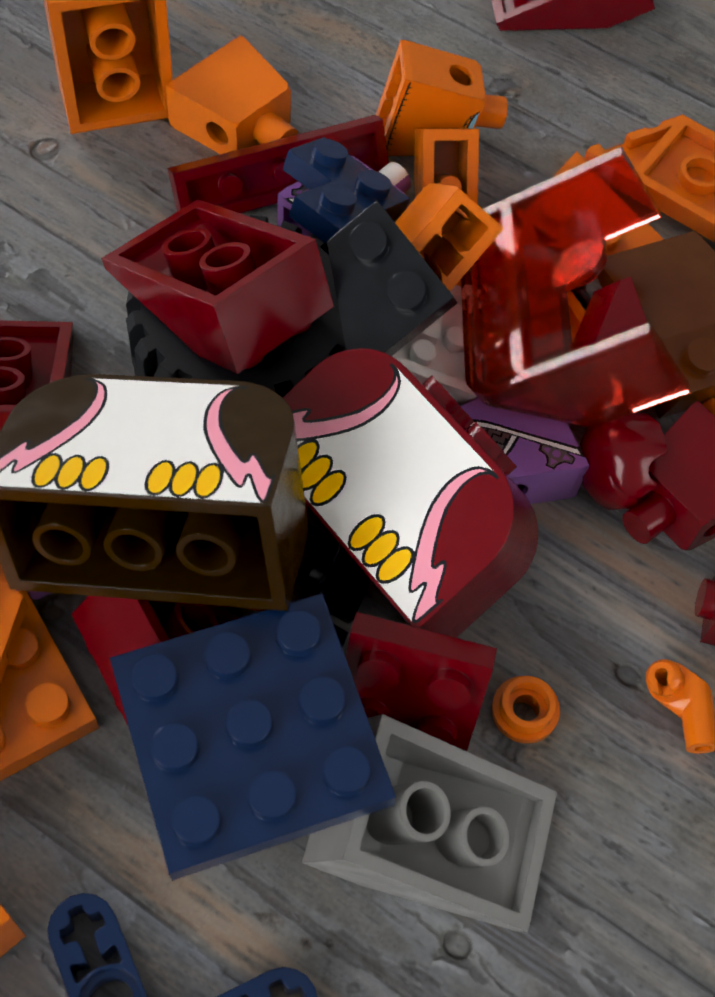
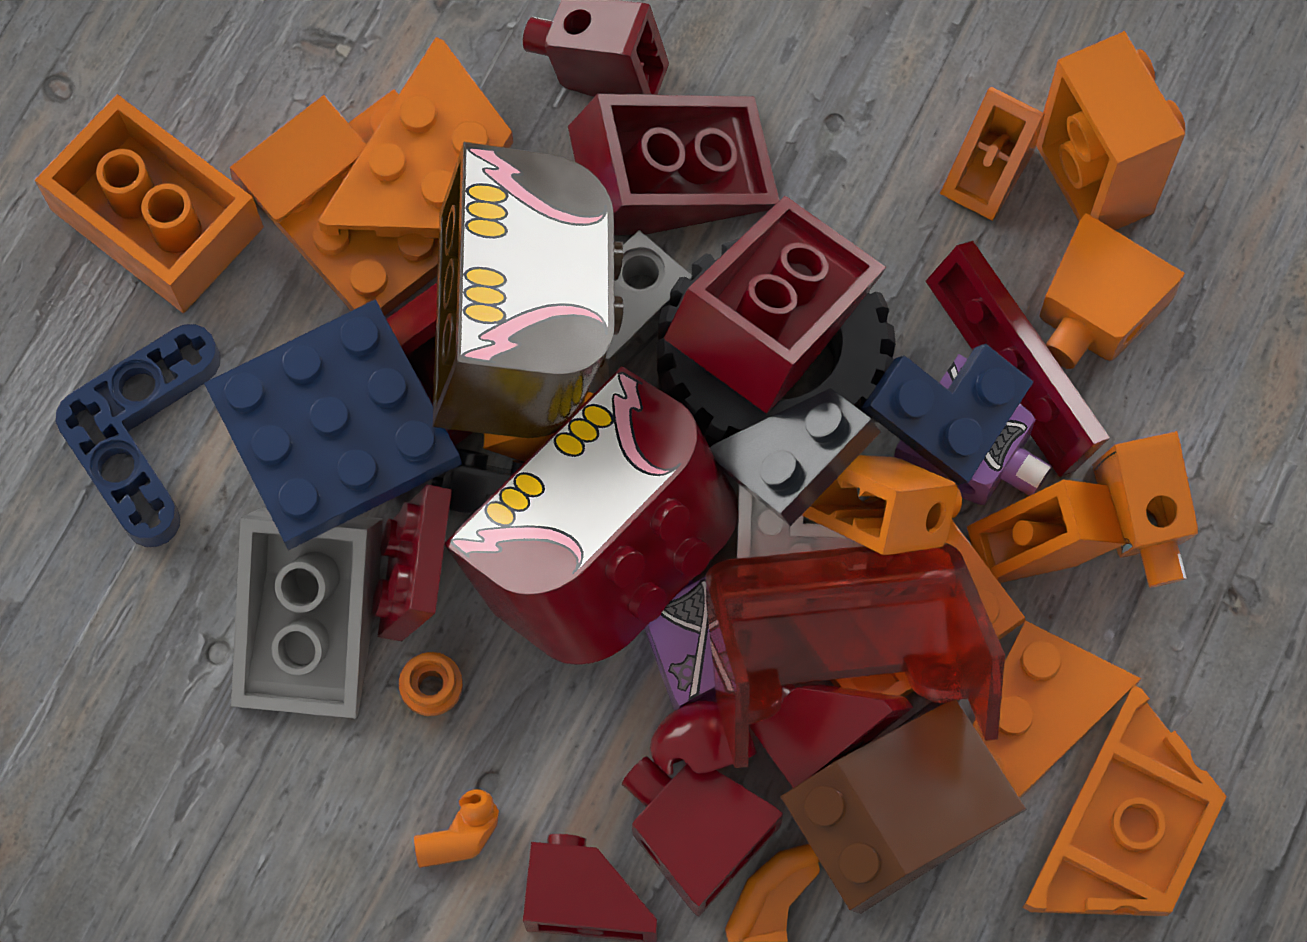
camera: 90 degrees right, 10 degrees up
(78, 144) = (993, 153): none -> orange slope

